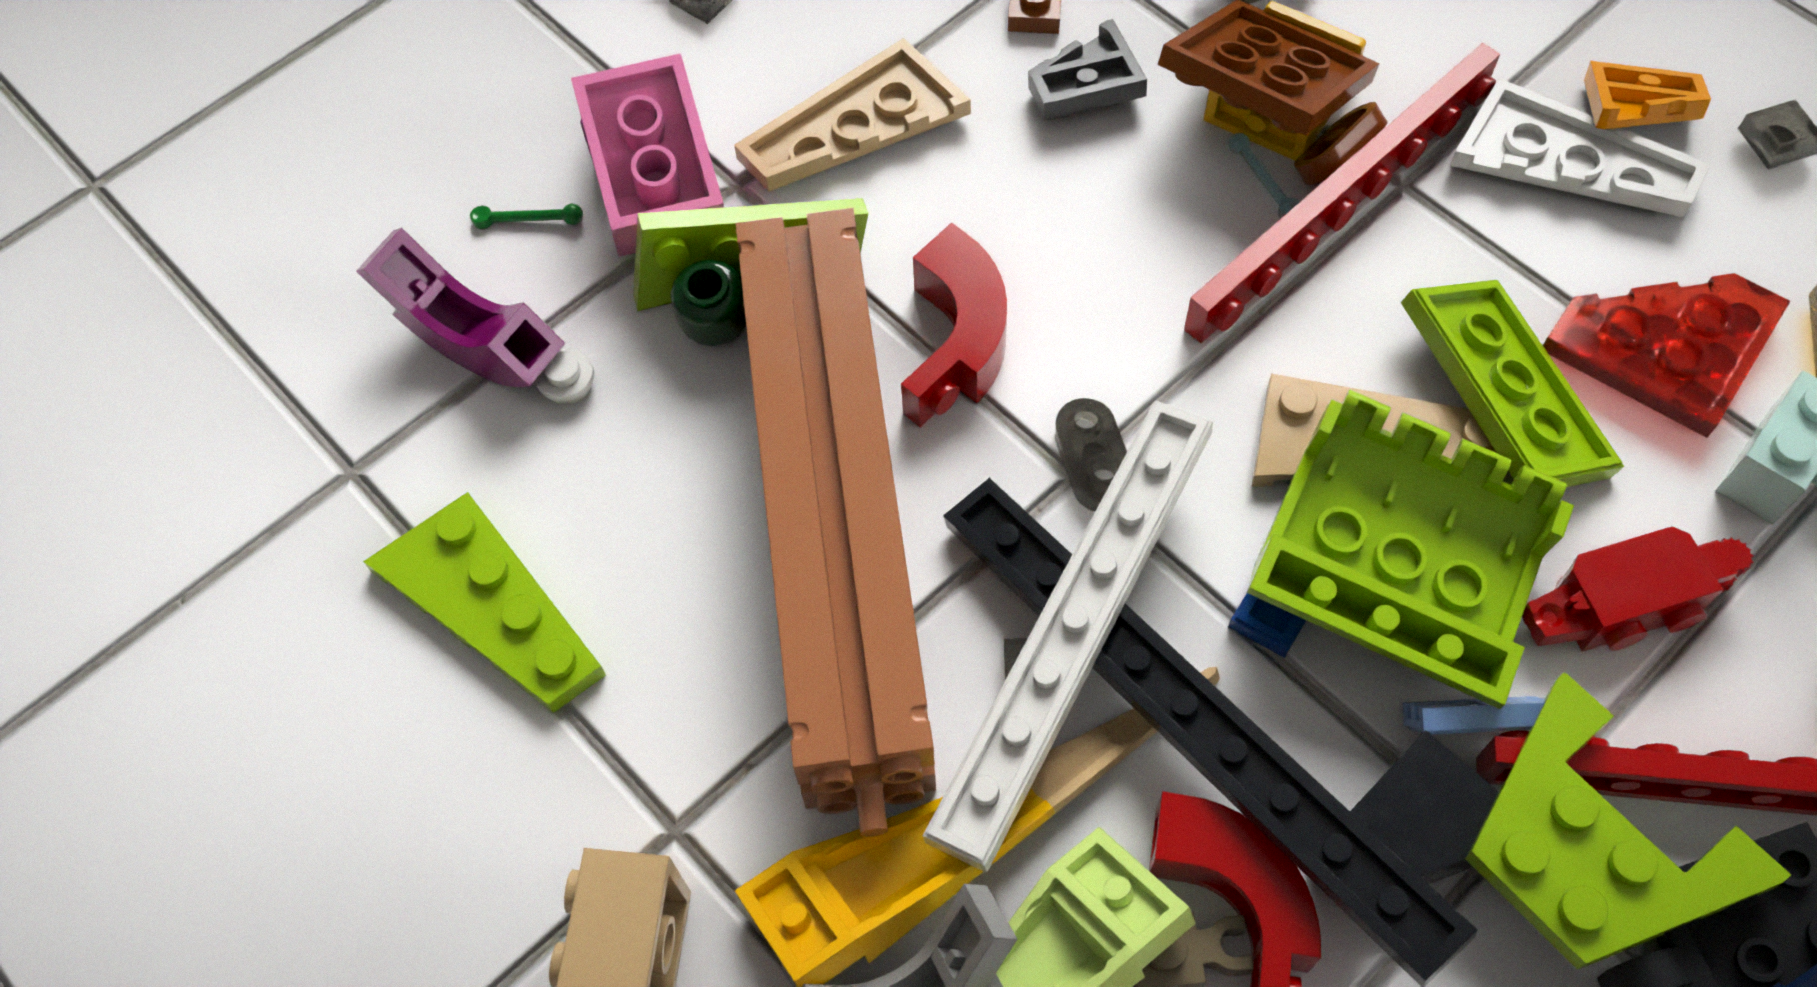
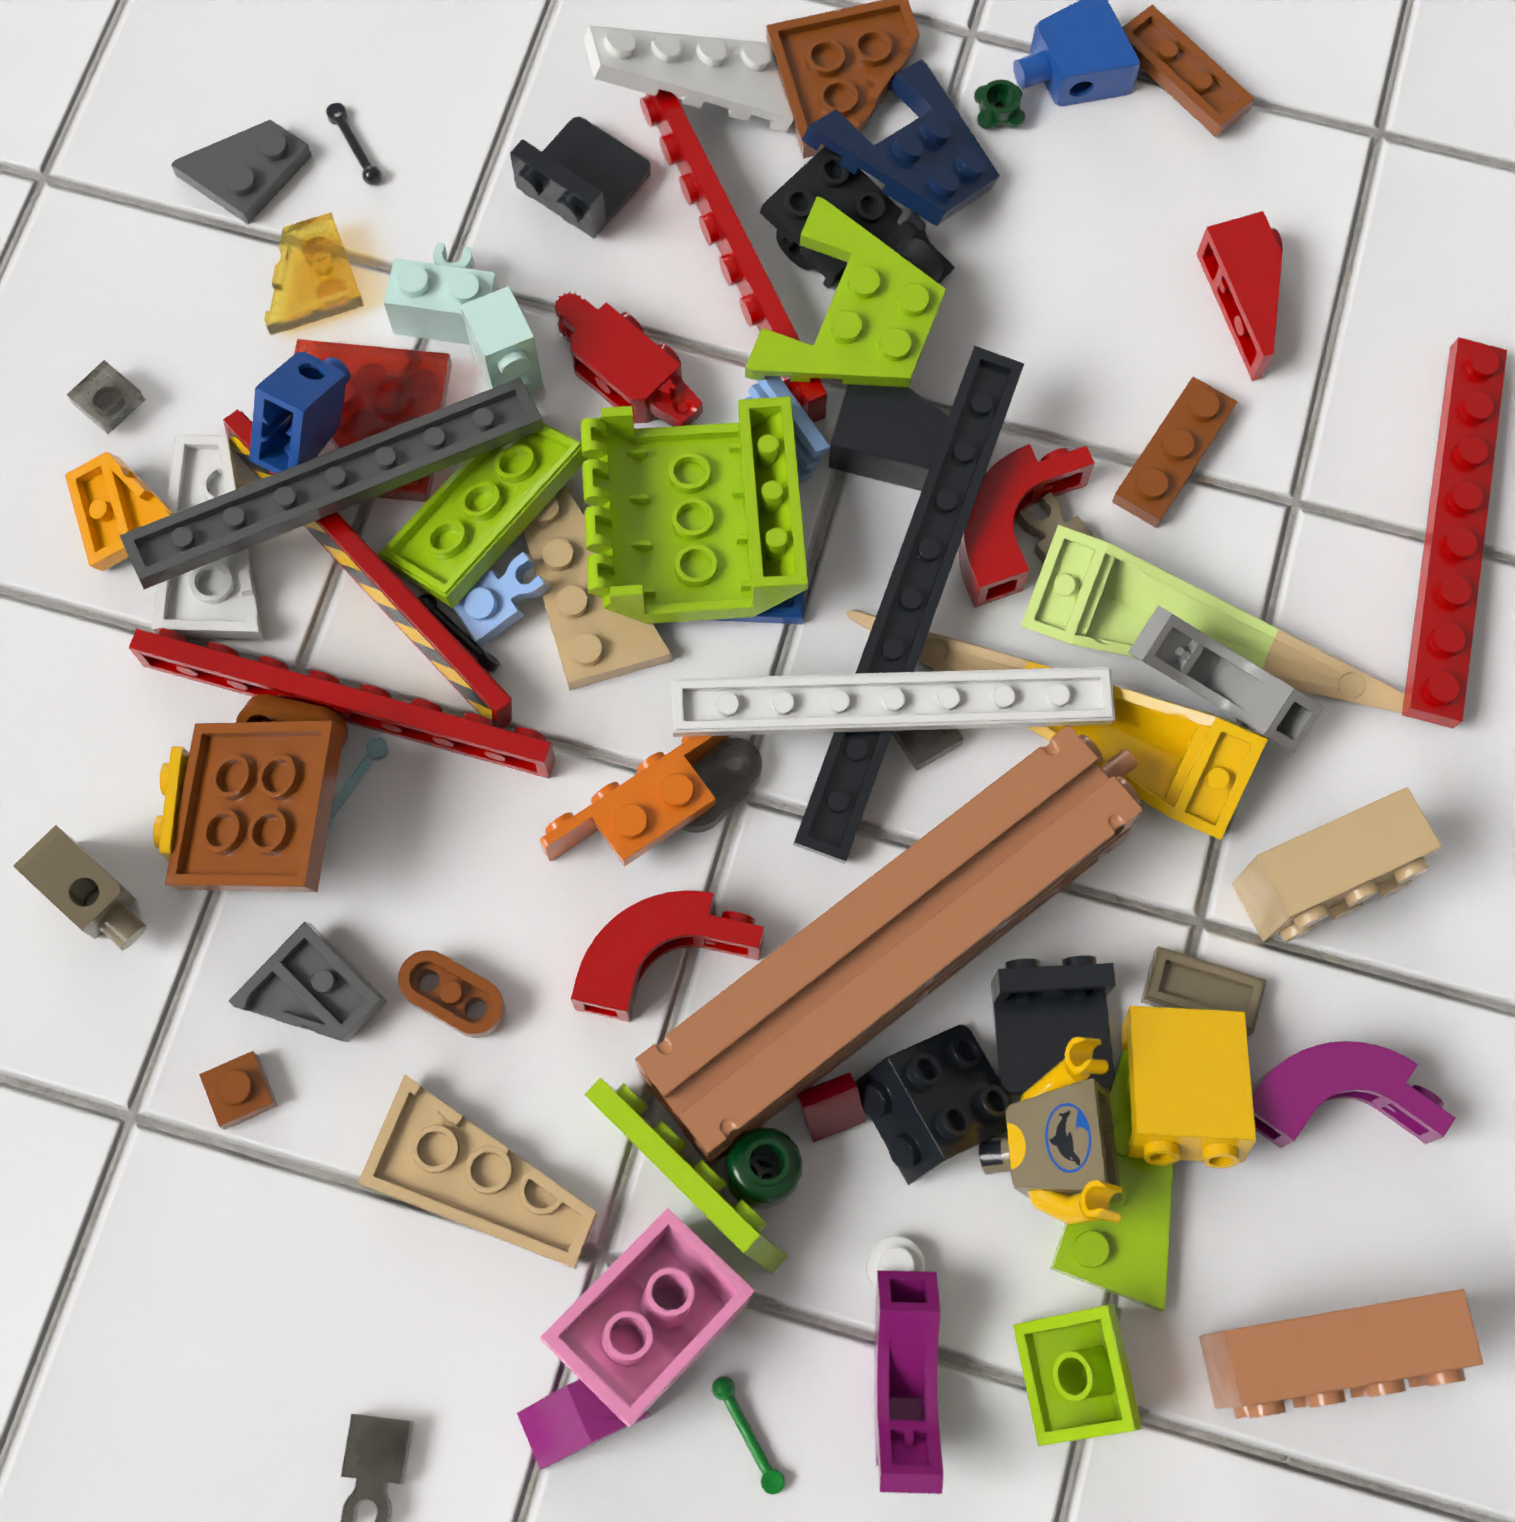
camera: 125 degrees left, 10 degrees up
(200, 664) = (1338, 1350): none -> nougat brick
(367, 463) = (1077, 1376): none -> lime slope
(429, 856) = (1345, 1070): none -> magenta arch
(521, 682) = (1189, 1085): none -> yellow panel
(542, 537) = (1062, 1141): none -> torso
(604, 784) = (1196, 984): none -> dark tan tile
(665, 612) = (1043, 1010): none -> black bracket
(669, 481) = (934, 1101): none -> black bracket
(726, 387) = (831, 1107): none -> dark red tile
(1017, 163) = (453, 995): none -> dark orange plate
(1100, 362) = (642, 809): none -> orange bracket
(1332, 325) = (484, 658): none -> black hinge
(1398, 351) = (495, 600): none -> light blue plate
(1483, 259) = (393, 598): none -> red tile
(1590, 257) = (330, 483): none -> dark grey plate
(1689, 236) = (297, 411): none -> blue torso
(1701, 461) = (502, 340): none -> light aqua brick

